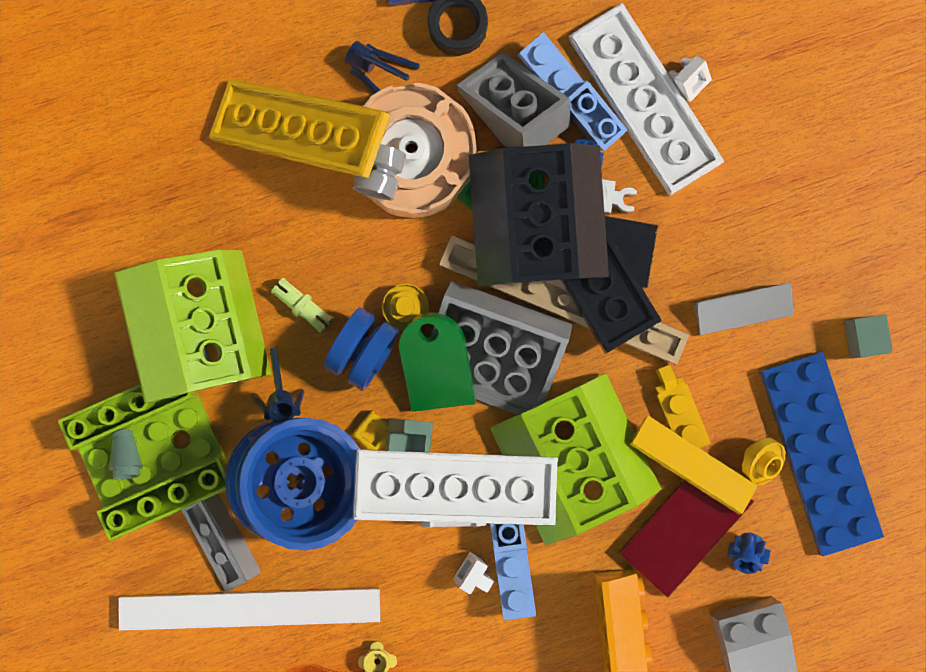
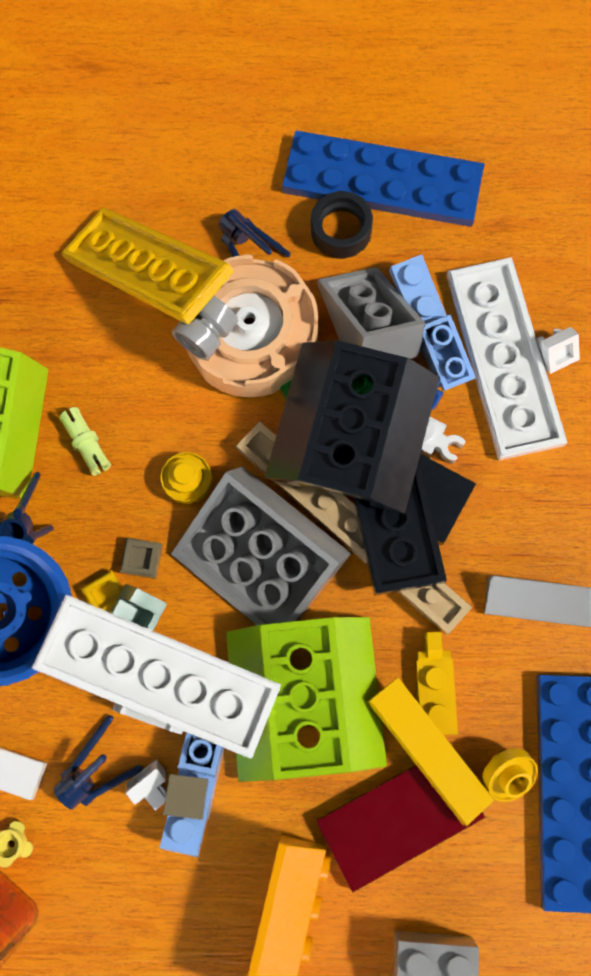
camera: 30 degrees right, 10 degrees down
(357, 346) = (121, 500): blue wheel -> none
(391, 391) = (141, 558): none -> dark tan tile
(413, 597) = (77, 783): none -> dark blue plant
(438, 366) = (193, 546): green tile -> none
(511, 573) = (186, 797): none -> dark tan tile
(748, 553) = (460, 875): blue gear -> none

